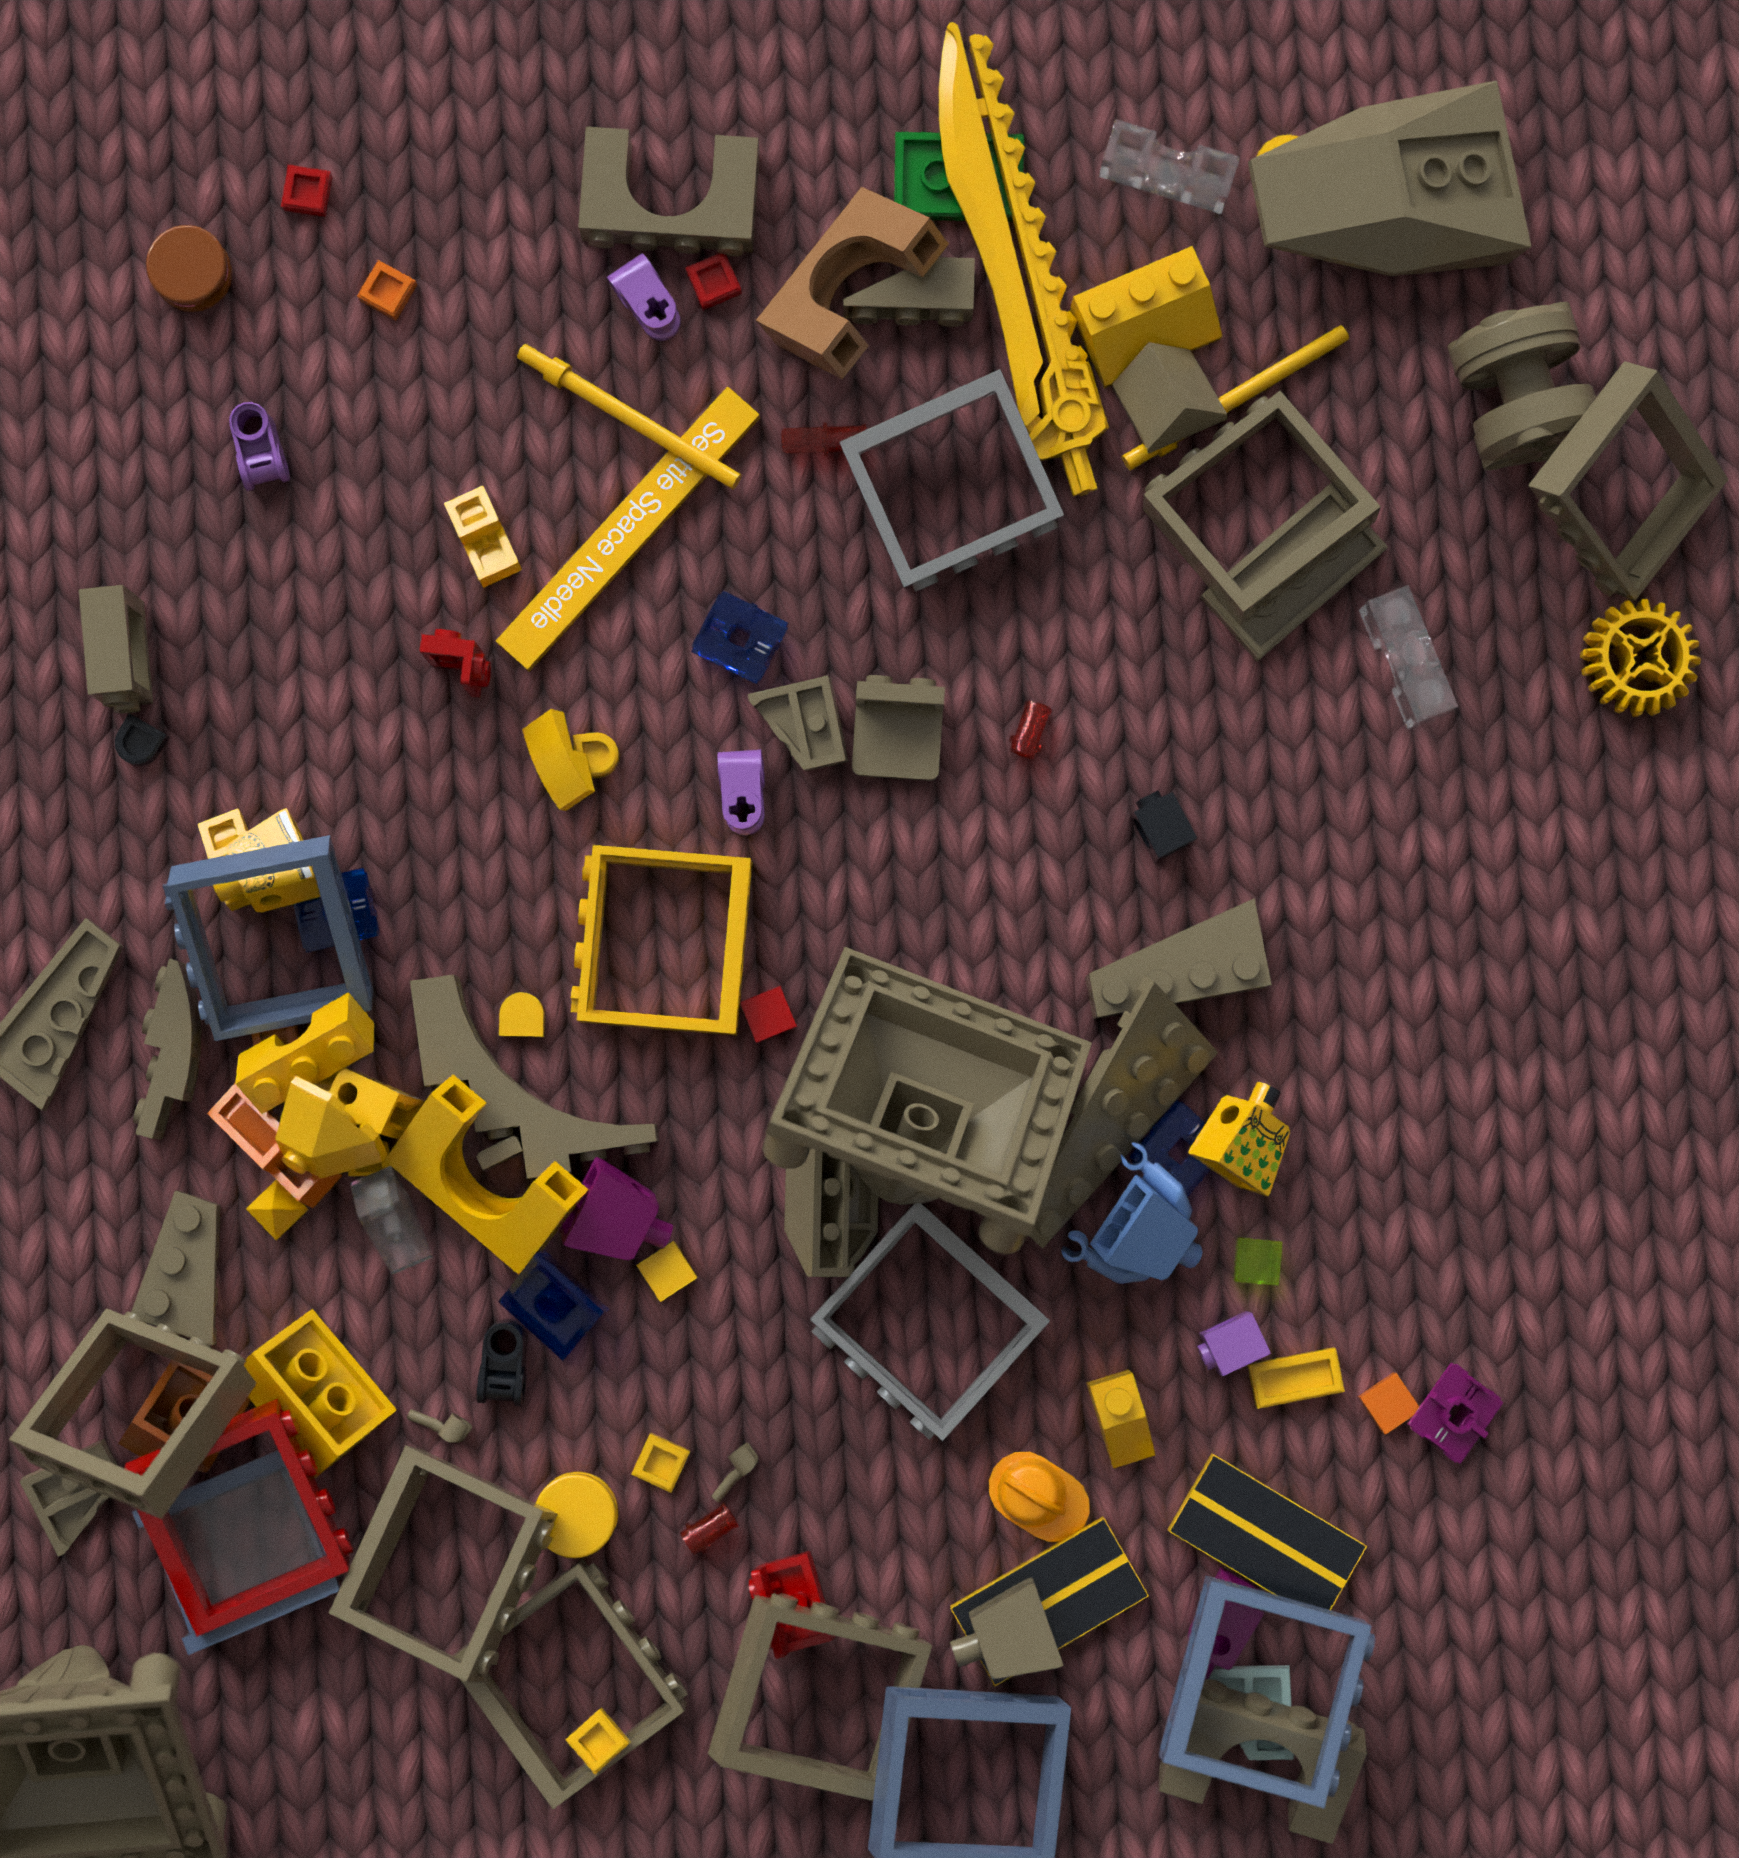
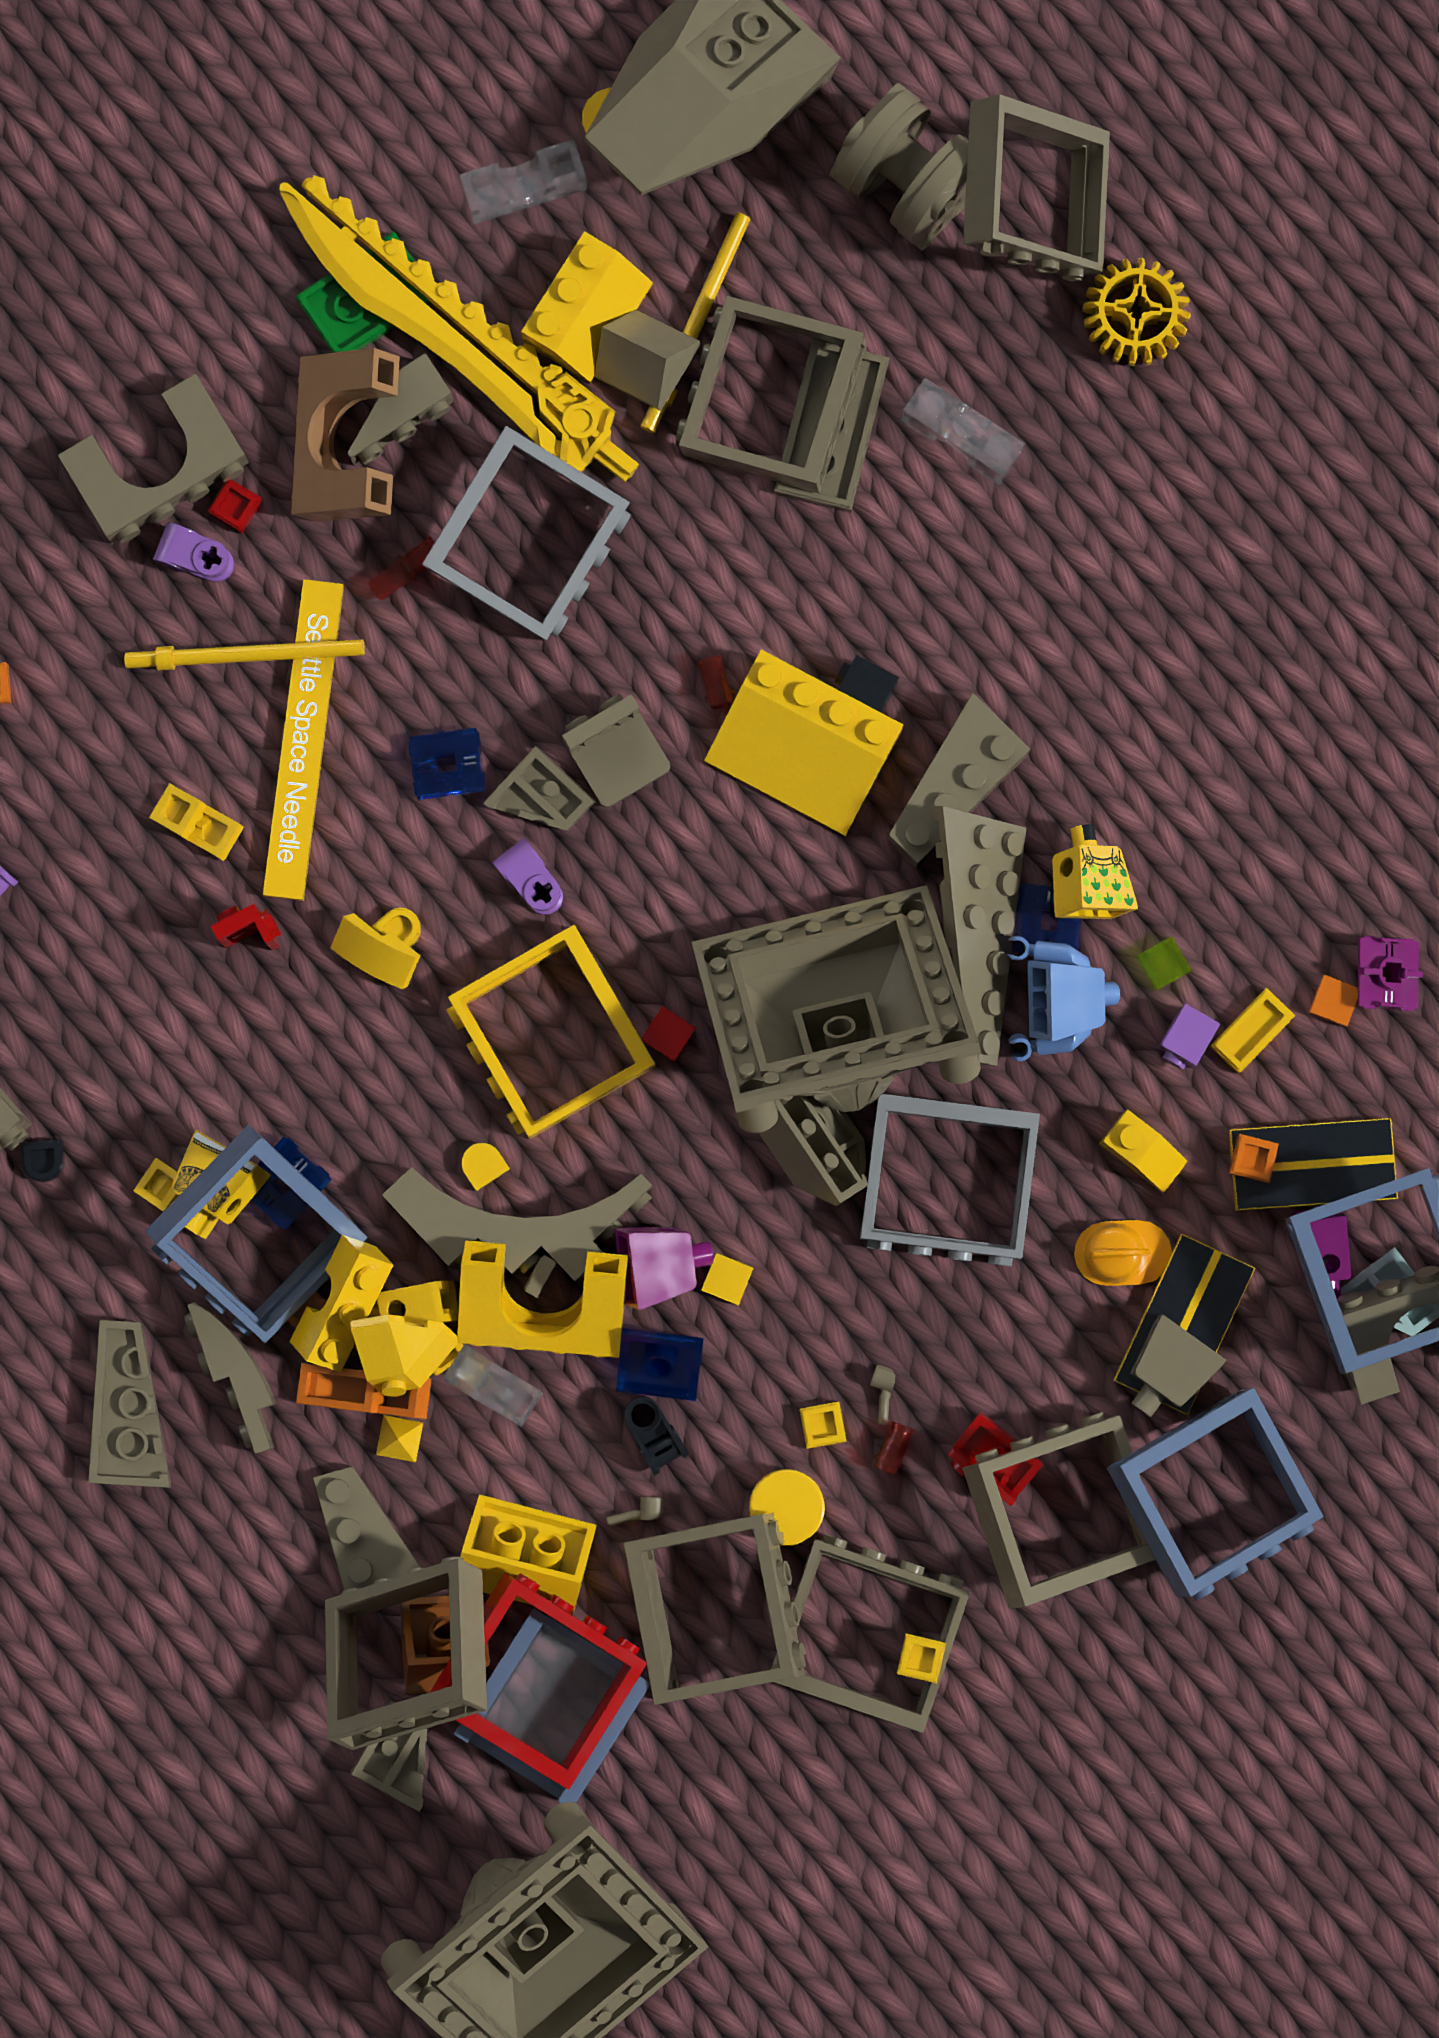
camera: 35 degrees left, 0 degrees up
(1070, 837) = (803, 743): none -> yellow slope
(1216, 1496) = (1253, 1158): none -> orange tile

